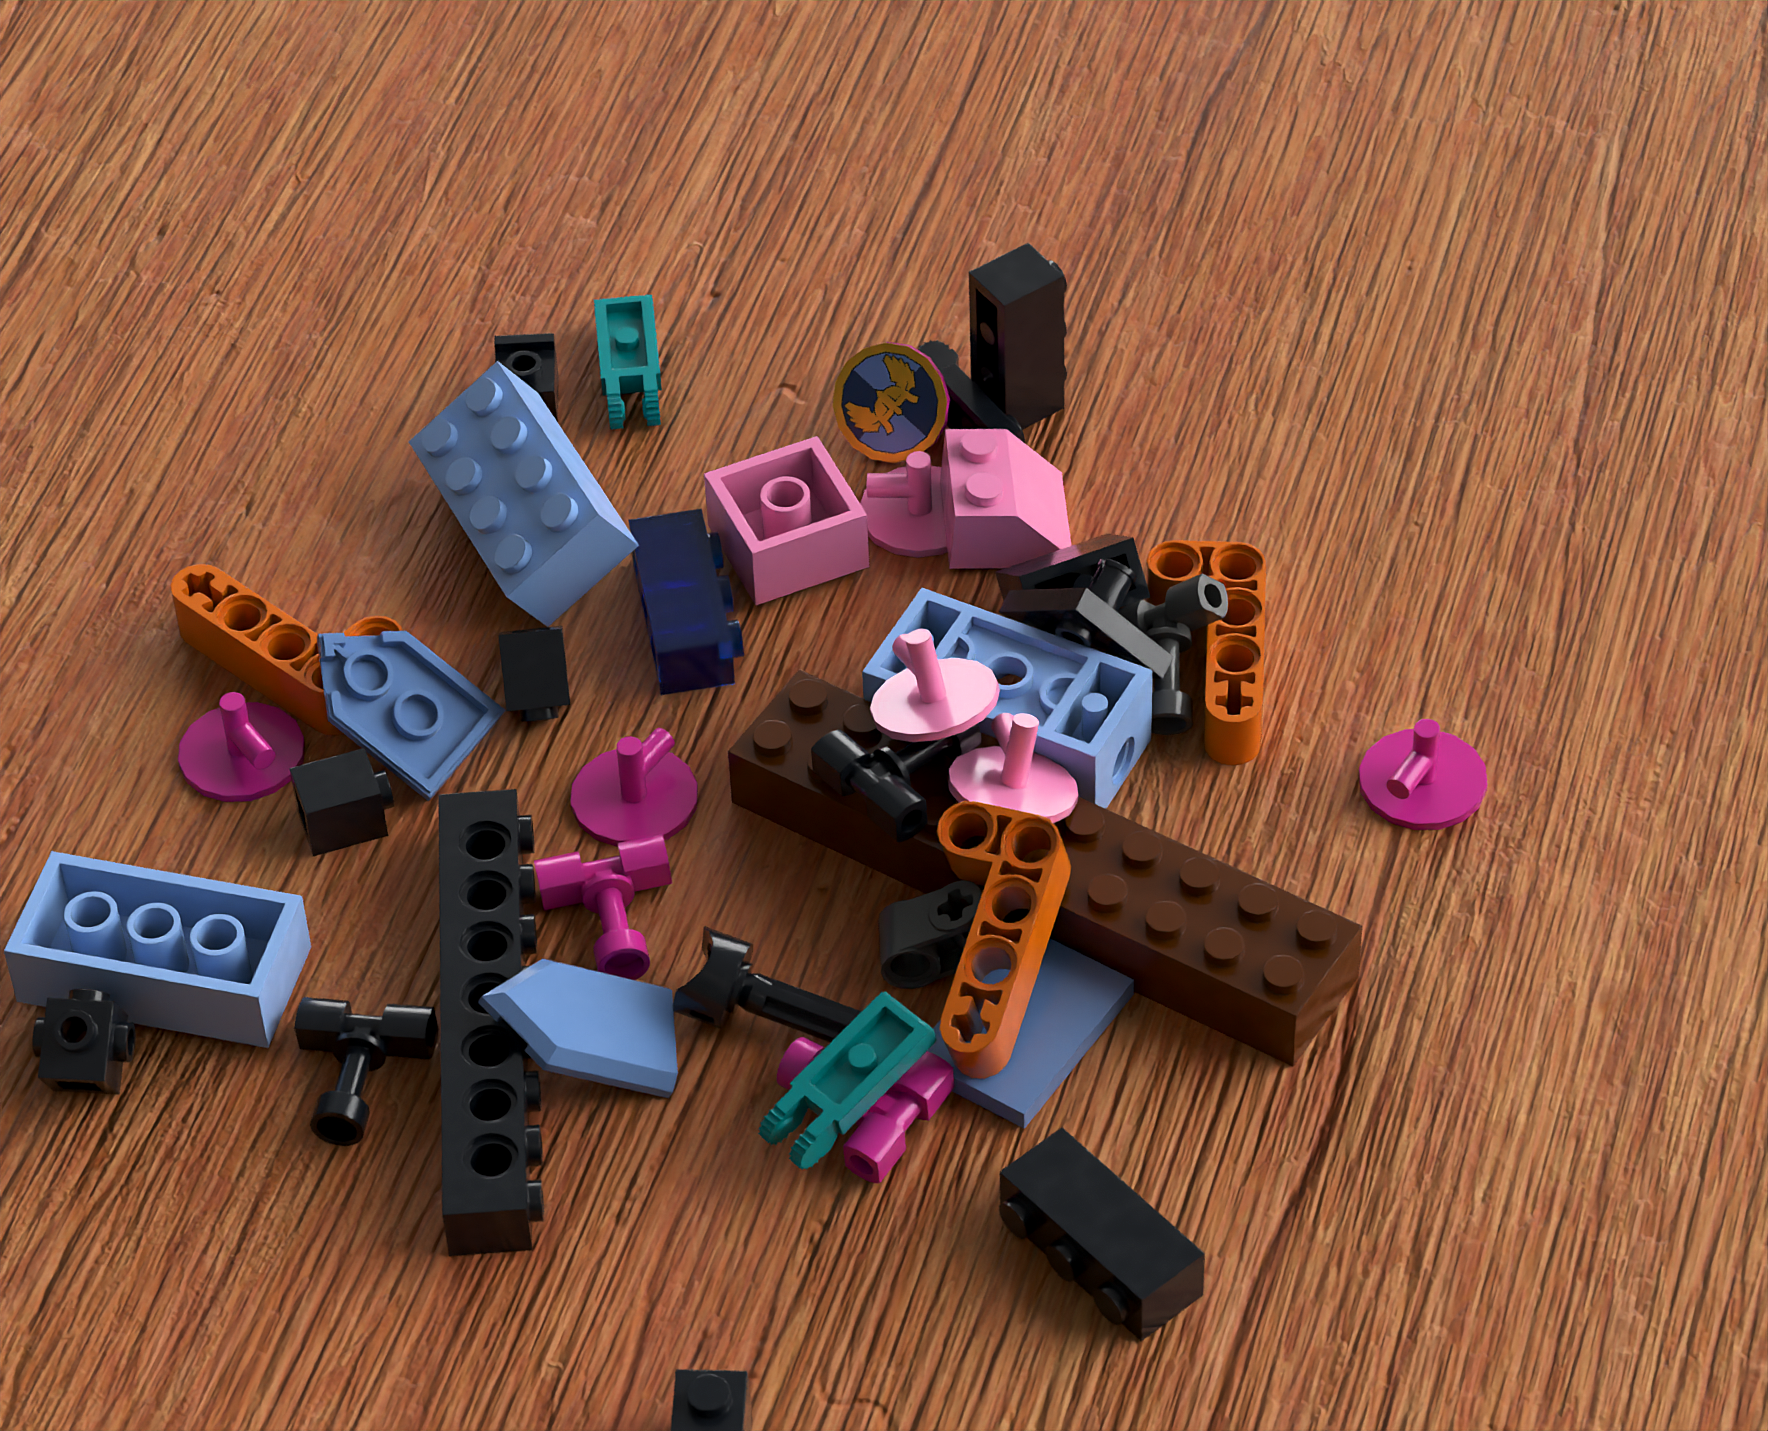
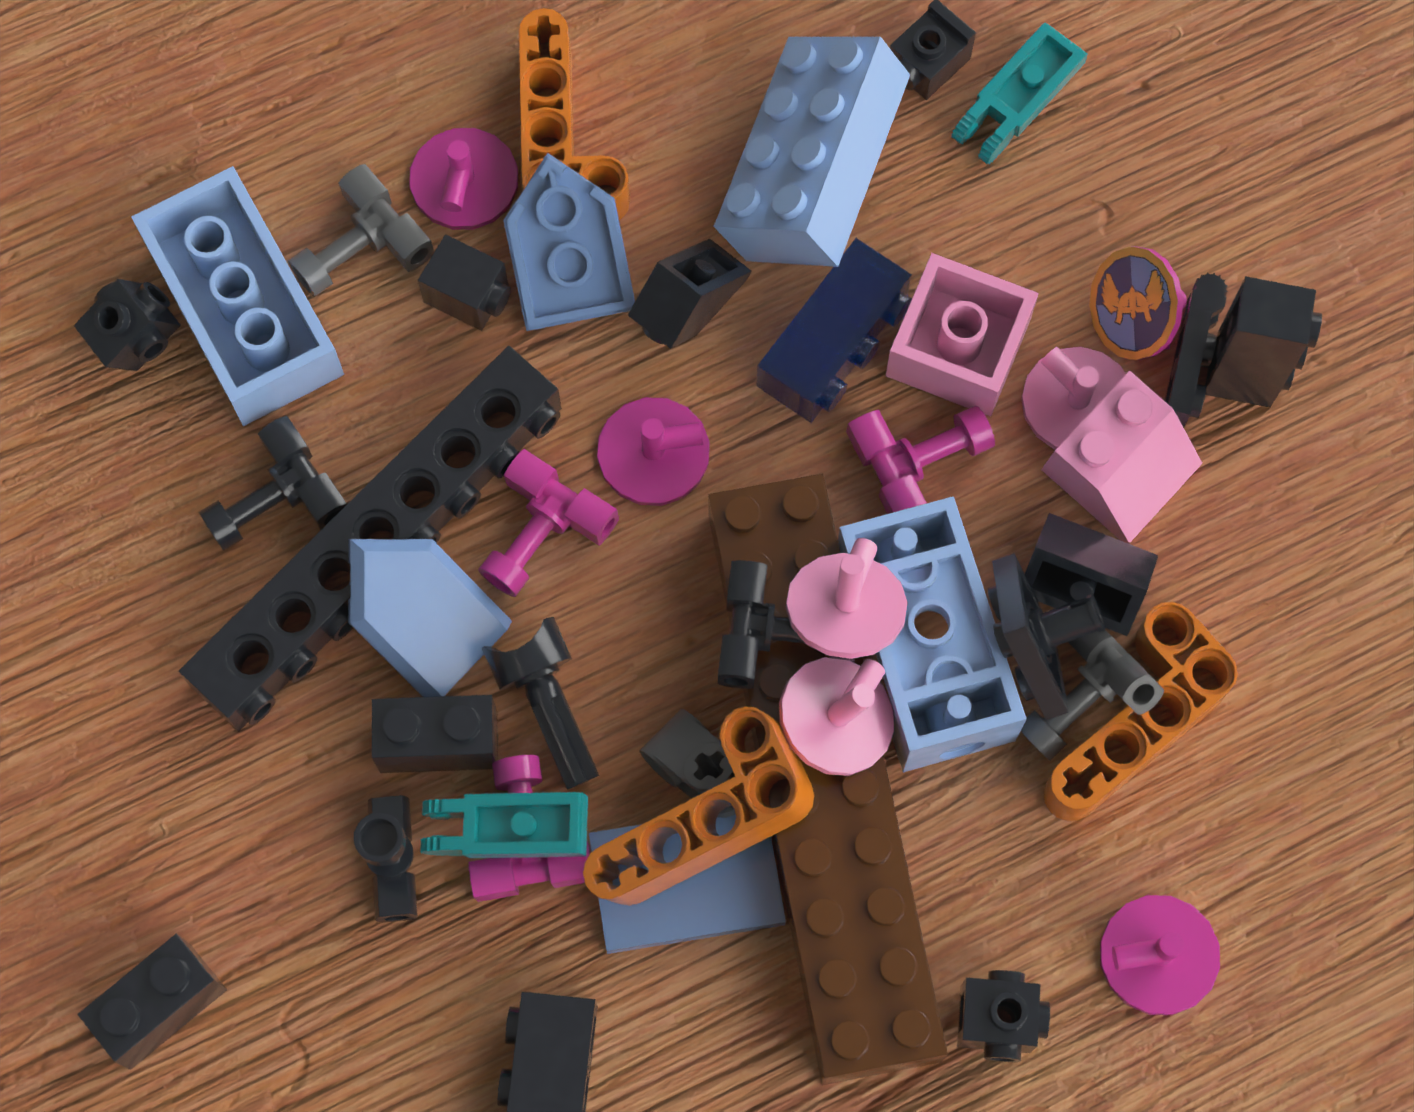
camera: 45 degrees right, 25 degrees up
(212, 827) = (375, 226): none -> dark grey bar
(706, 1091) = (434, 733): none -> black brick
(773, 1188) = (386, 846): none -> black bar
(842, 637) = (901, 464): none -> dark pink bar
(1367, 885) = (983, 1029): none -> black brick

